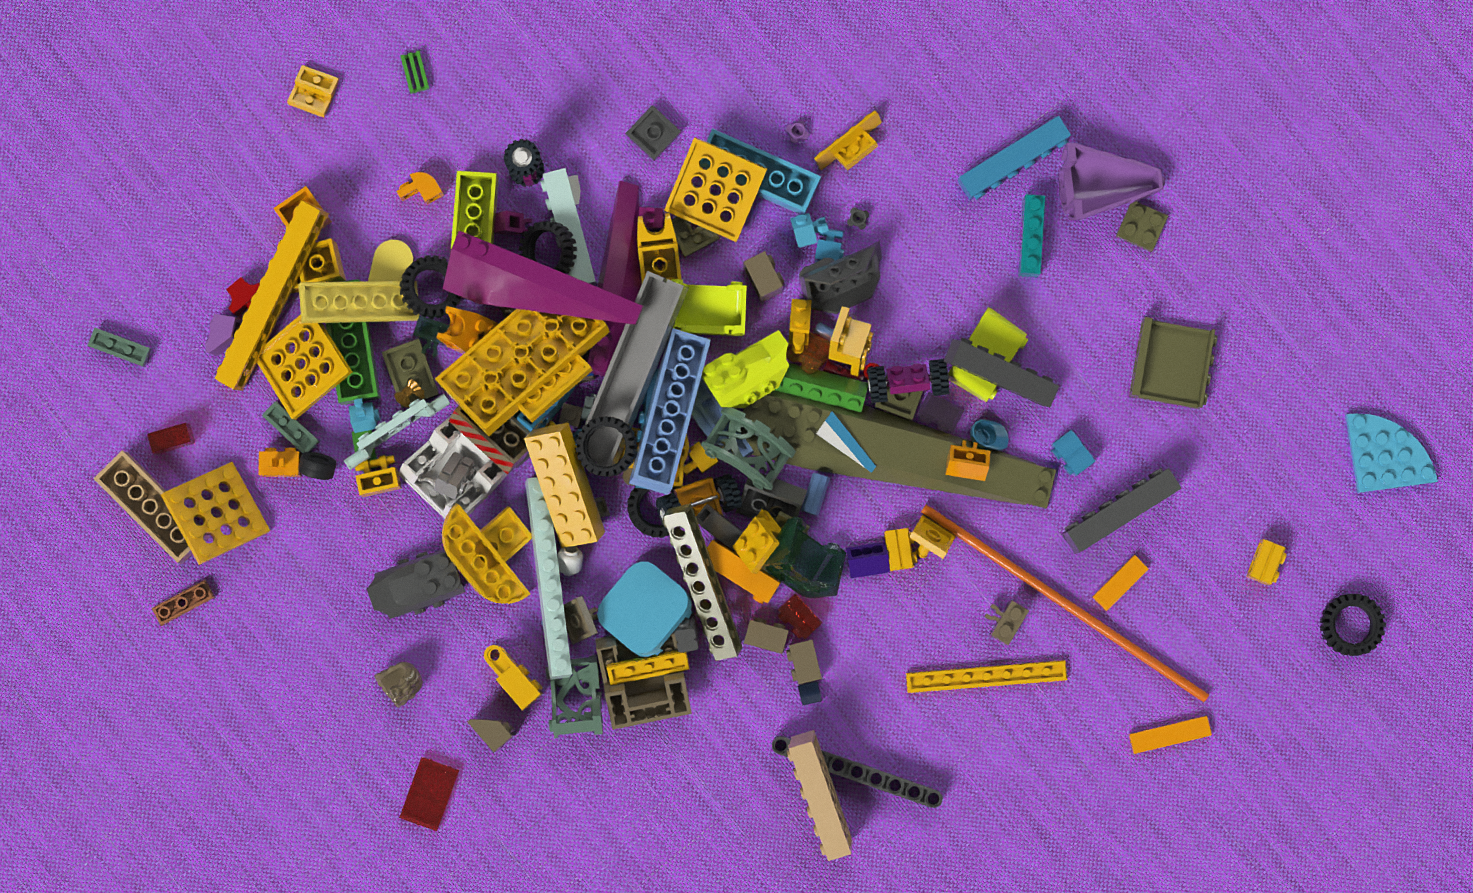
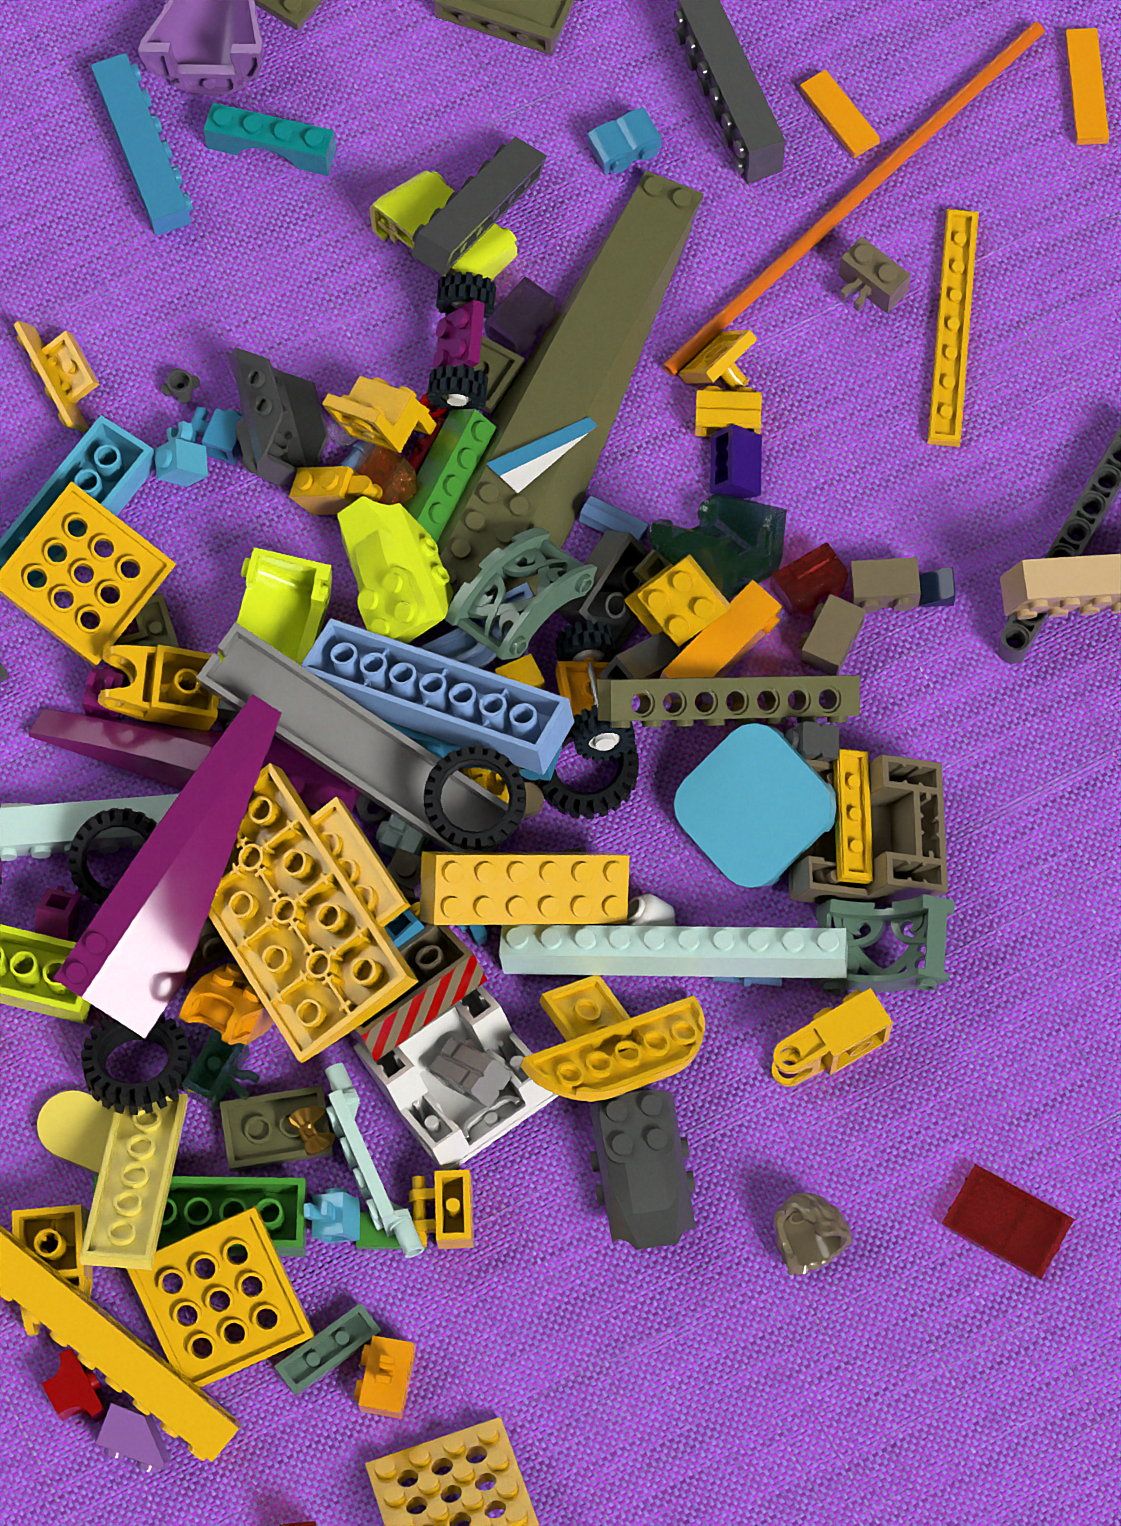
camera: 75 degrees left, 15 degrees down
(317, 465) = (404, 1307): black tyre -> none
(493, 732) = (922, 1087): dark tan slope -> none
(579, 620) = (754, 907): dark tan tile -> none
(763, 276) = (239, 529): dark tan brick -> none
(791, 129) = (15, 442): medium lavender plate -> none
(968, 462) = (610, 277): light orange brick -> none
(989, 435) = (571, 254): dark azure cap -> none

